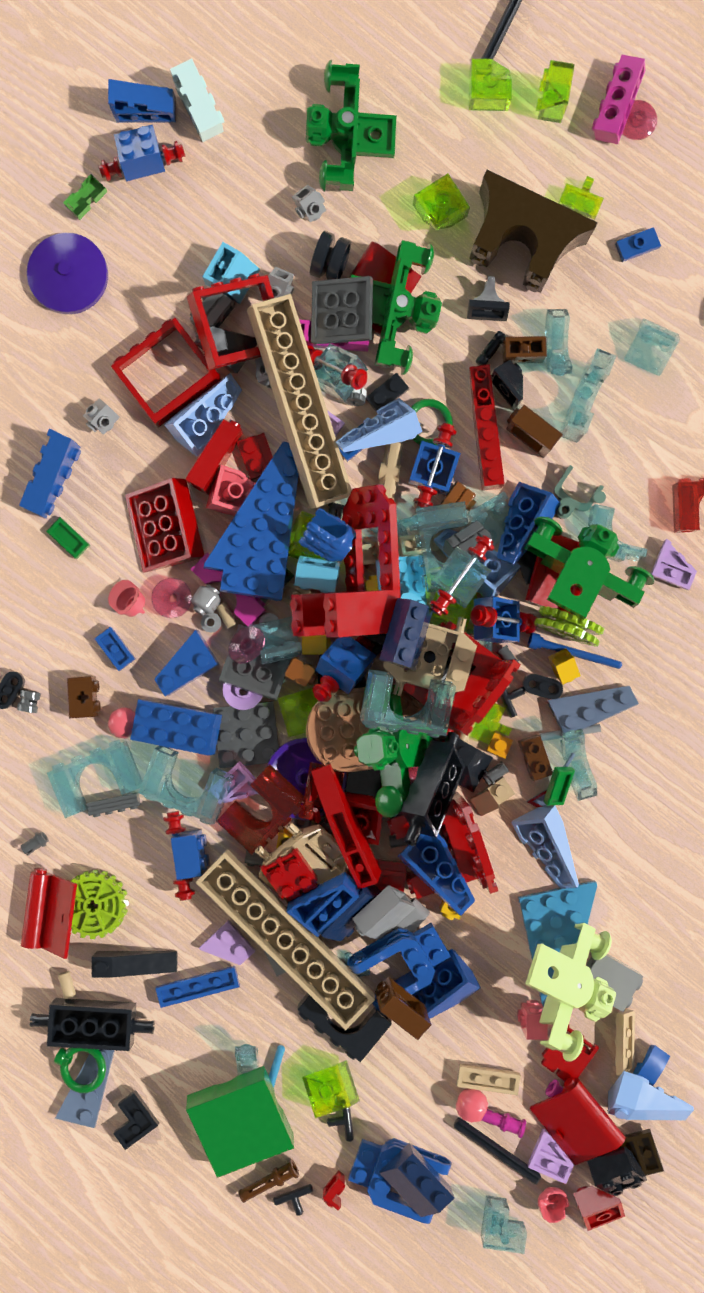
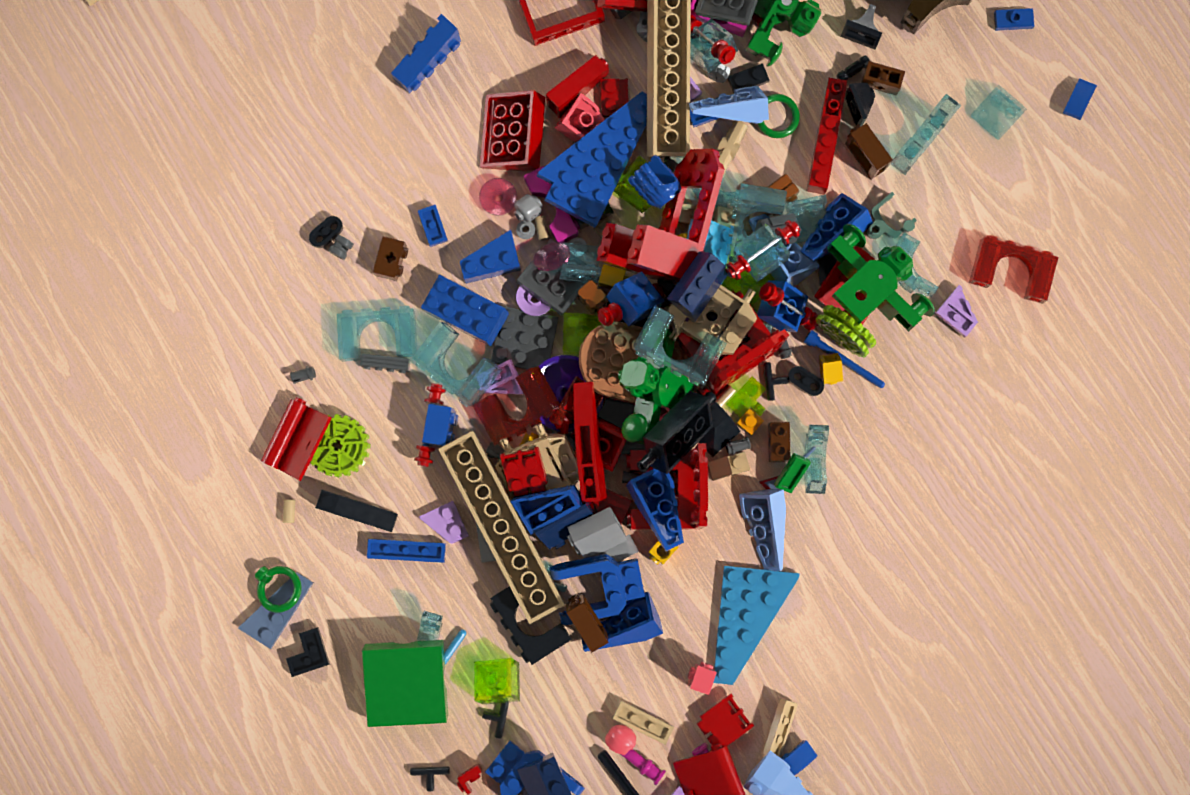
camera: 25 degrees right, 5 degrees down
(68, 538) = (423, 116): green tile -> none
(91, 1024) = (300, 552): black brick -> none
(100, 417) = (488, 19): light grey brick -> none
(121, 722) = (416, 293): coral hair -> none
(126, 599) = (458, 184): coral piece -> none
(200, 419) = (575, 48): light blue wedge -> none
(278, 1177) = (422, 749): reddish brown pin -> none
(317, 574) = (634, 212): medium azure slope -> none
(434, 466) = (770, 154): blue brick -> none
(556, 335) = (914, 80): clear light blue arch -> none
(558, 734) = (804, 429): light grey bar -> none
(571, 987) = (745, 650): yellowish green piece -> none
(591, 708) = (845, 414): sand blue wing -> none
(619, 976) = (784, 667): light grey brick -> none

